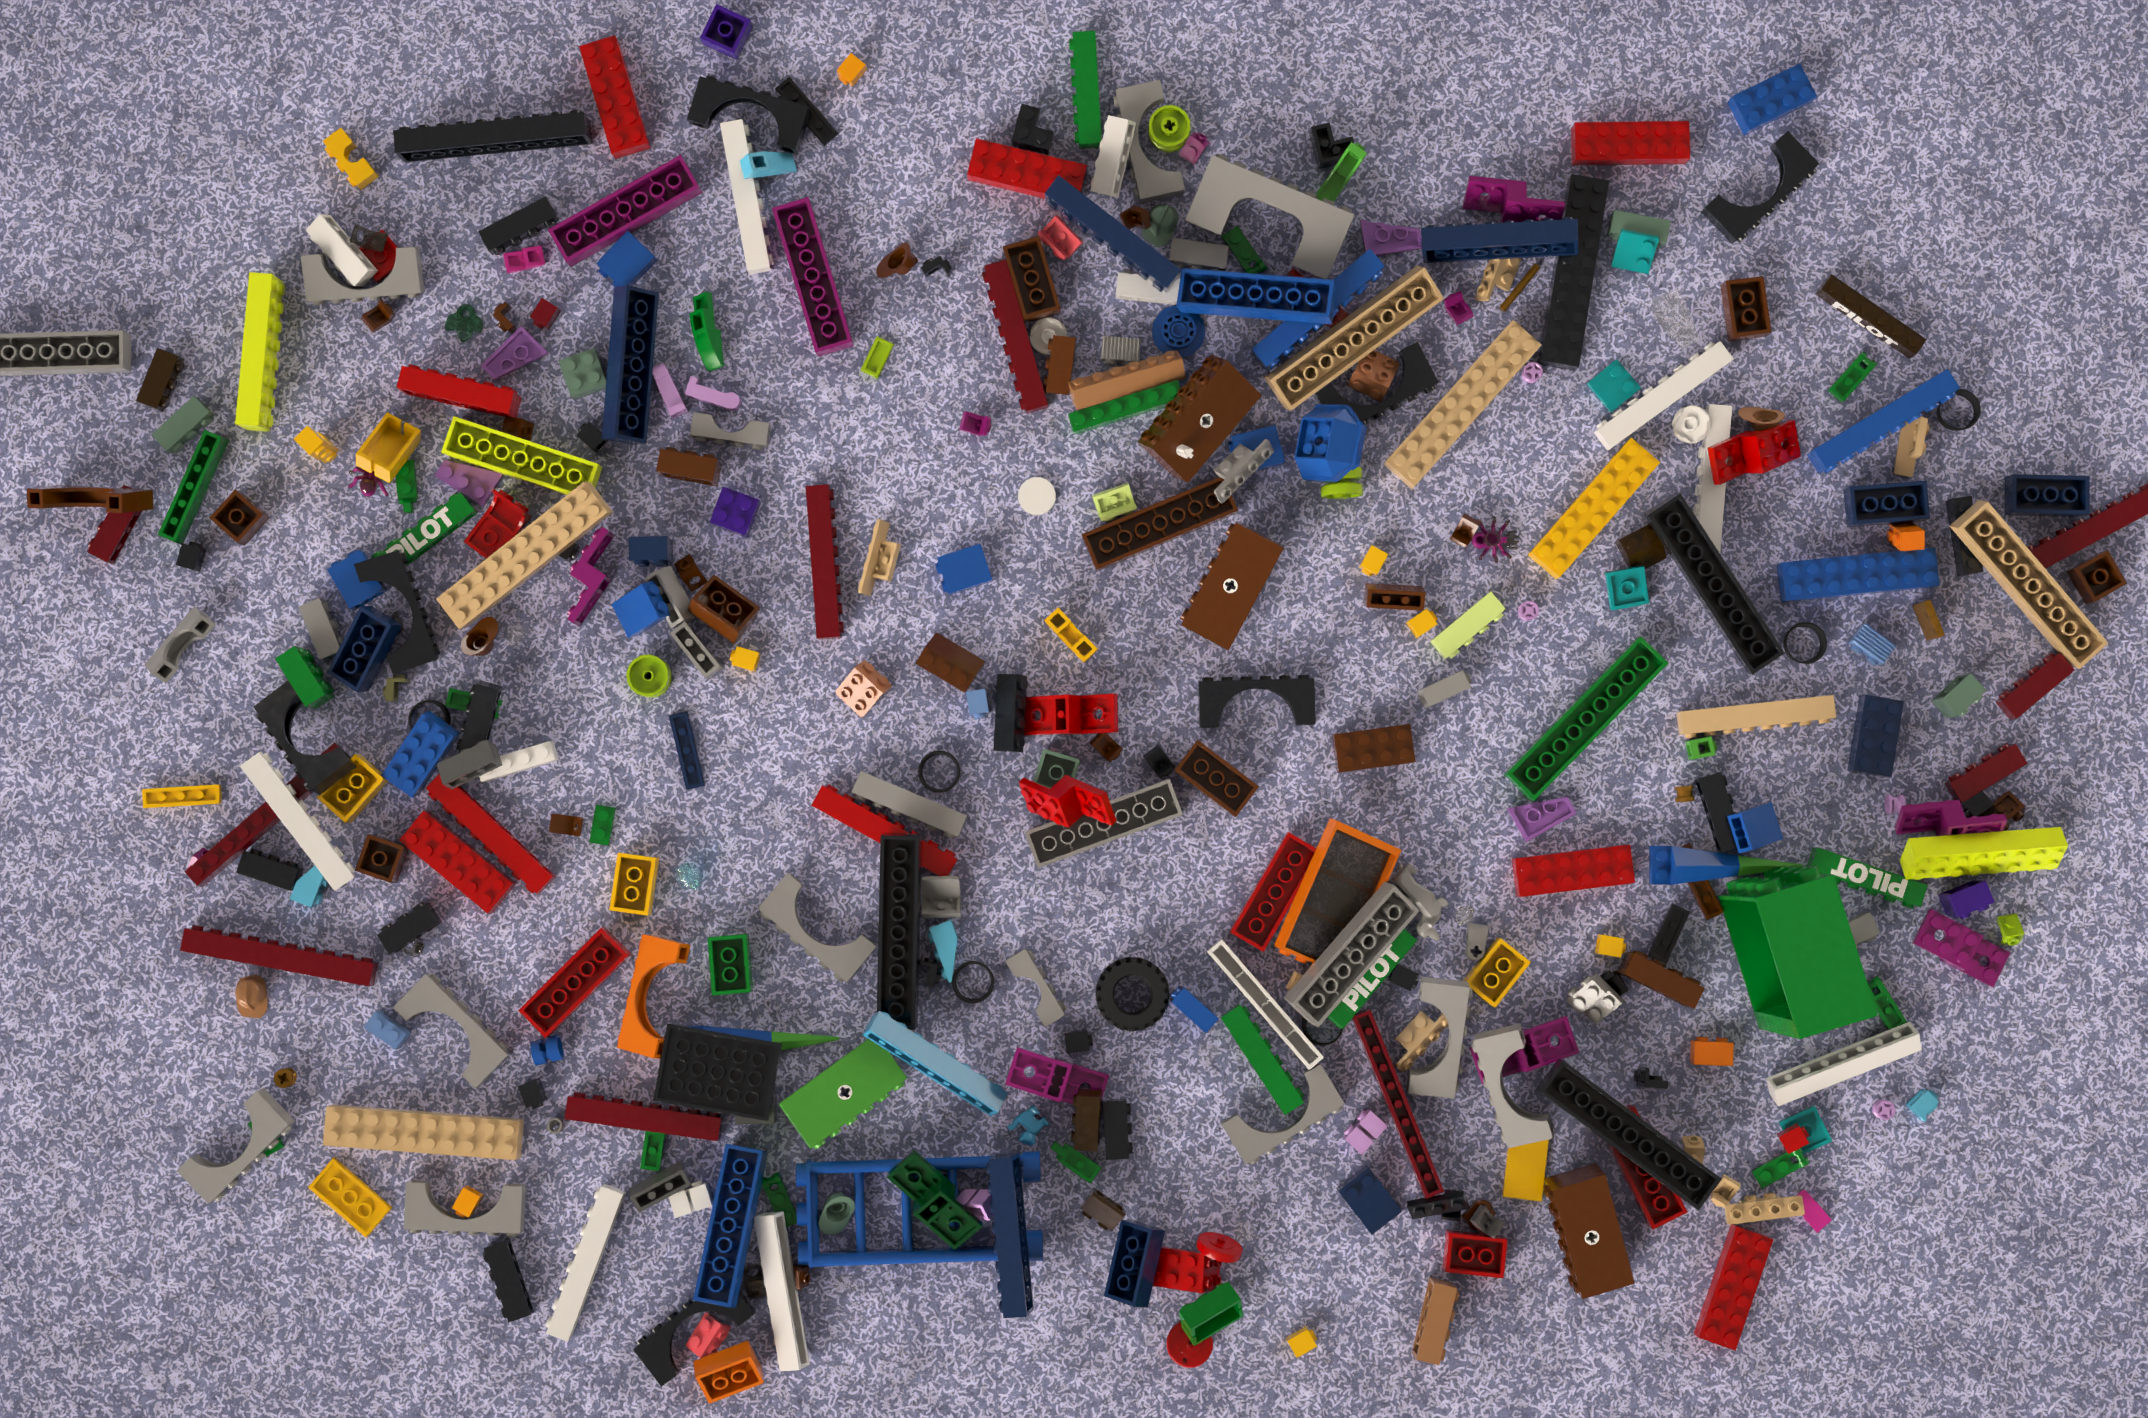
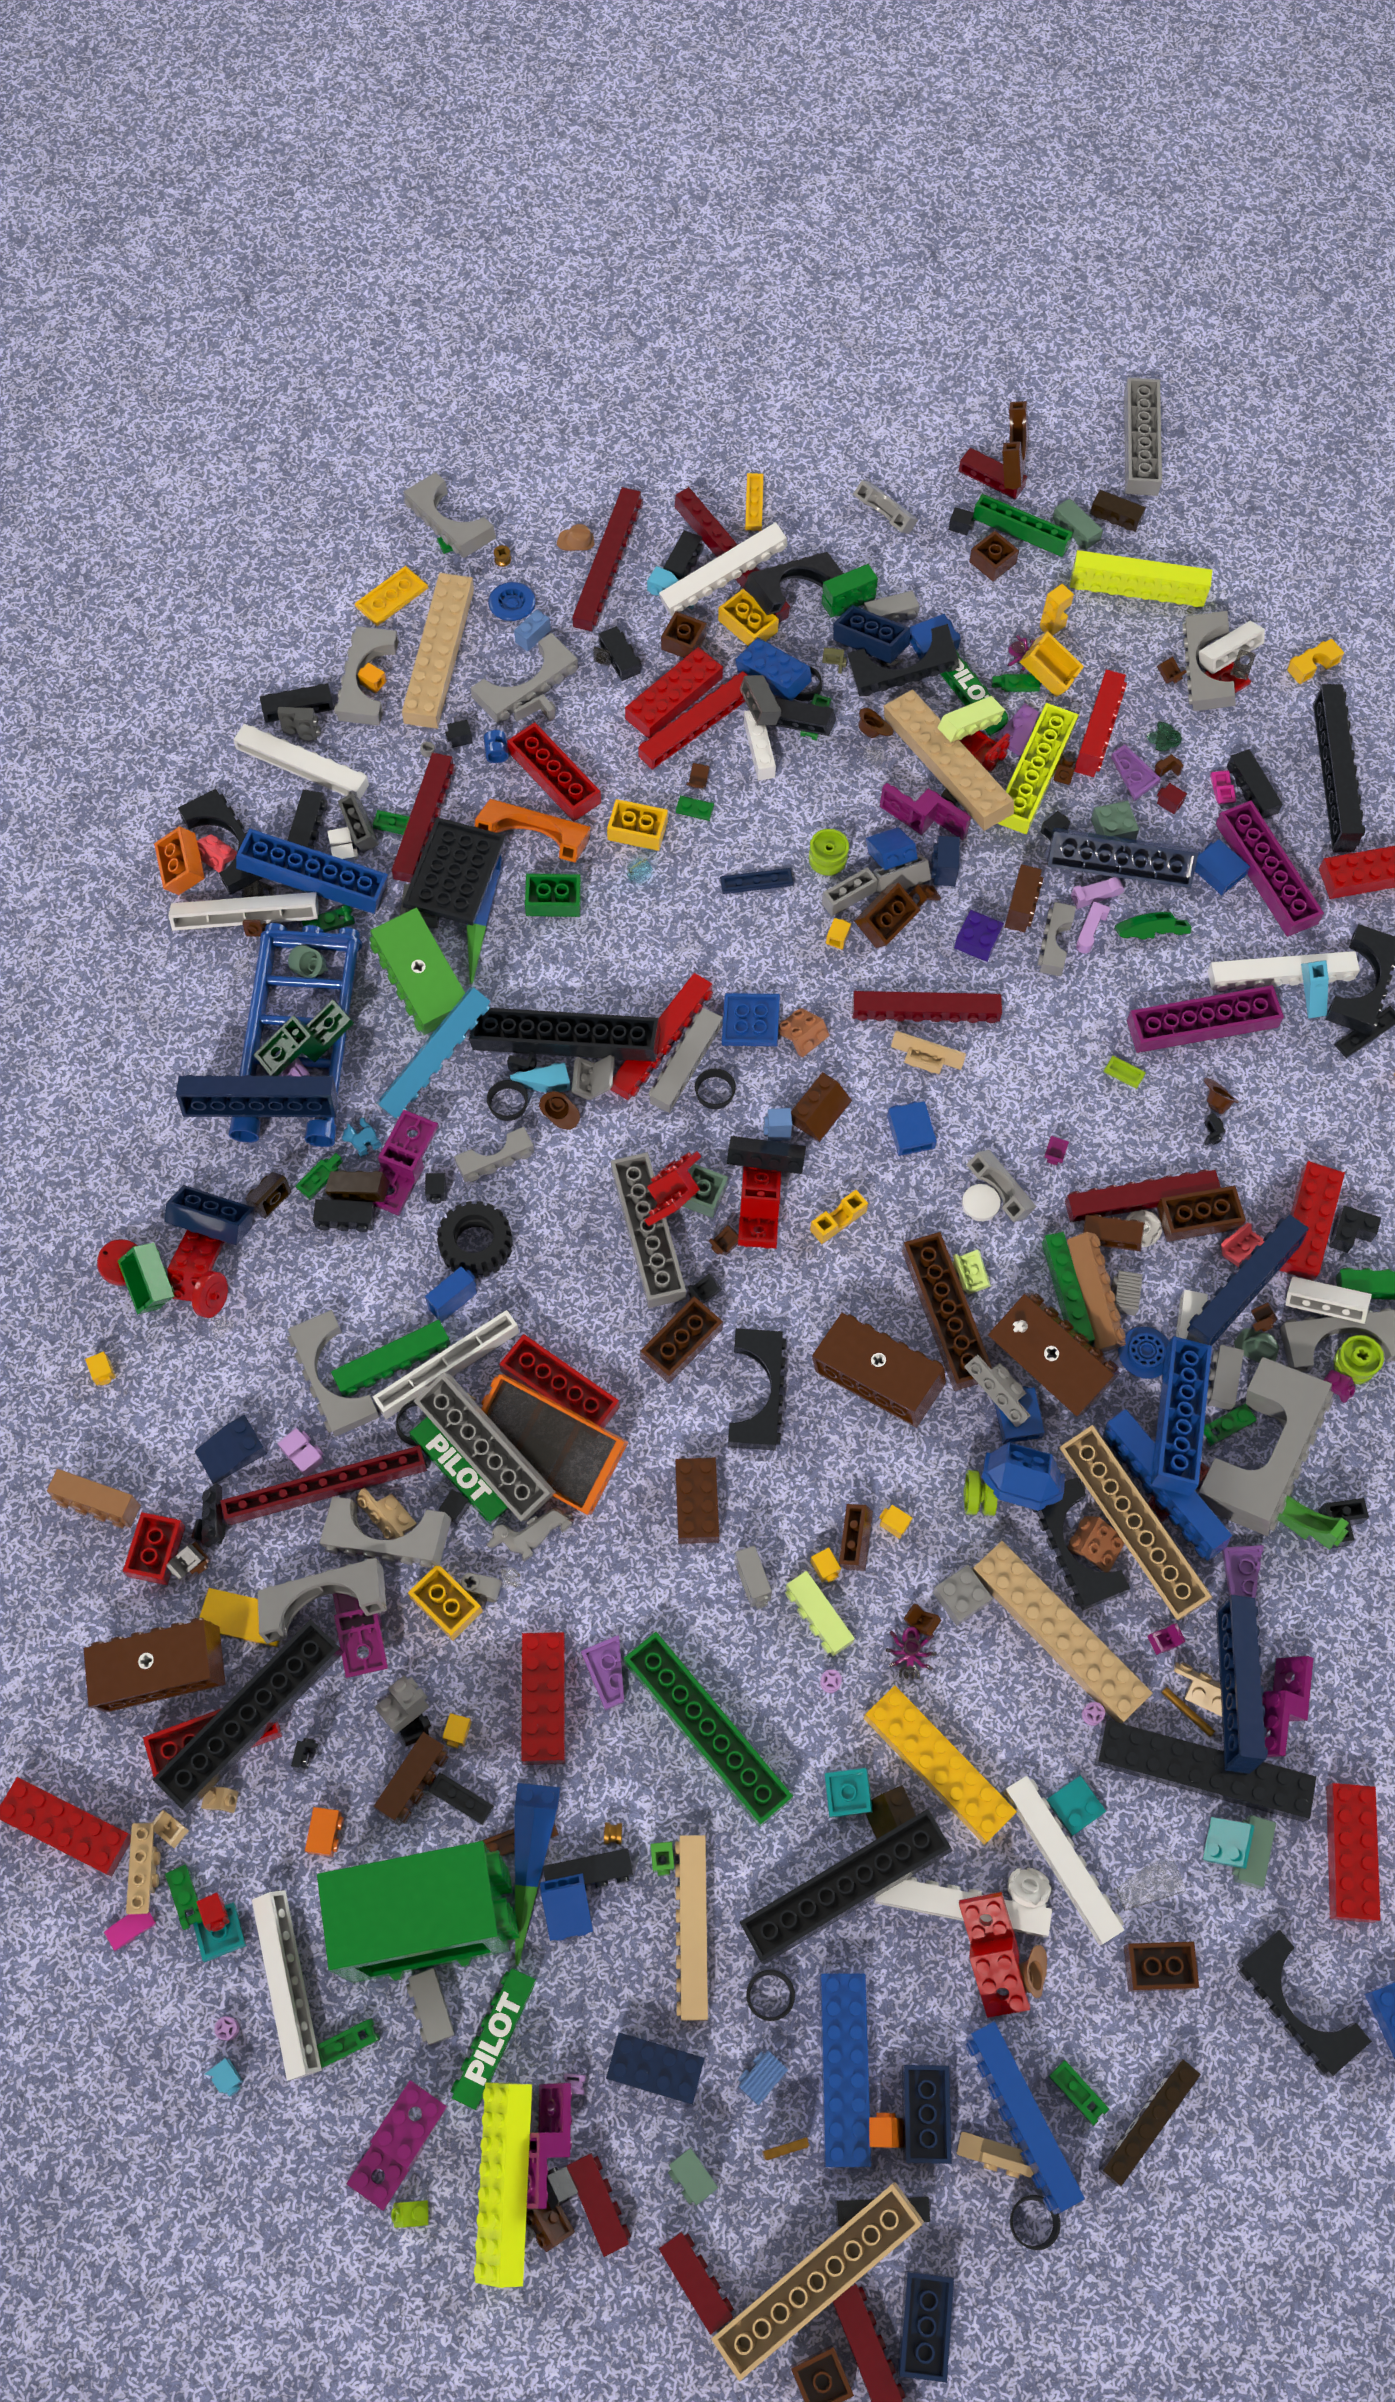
camera: 90 degrees right, 20 degrees down
(348, 1058) = (512, 607): none -> blue wheel
(477, 532) = (971, 719): none -> yellowish green brick
(488, 1000) = (537, 703): none -> light grey bracket
(539, 1265) = (299, 721): none -> dark grey plate
(665, 1243) = (308, 818): none -> black brick
(782, 909) = (598, 943): light grey arch -> none
(856, 741) = (750, 1019): none -> blue plate
(979, 927) = (559, 1110): none -> reddish brown piece
(1036, 461) = (989, 1169): none -> light grey arch
(1437, 495) = (962, 1595): none -> light grey brick
(1966, 898) = (452, 2156): dark purple brick -> none

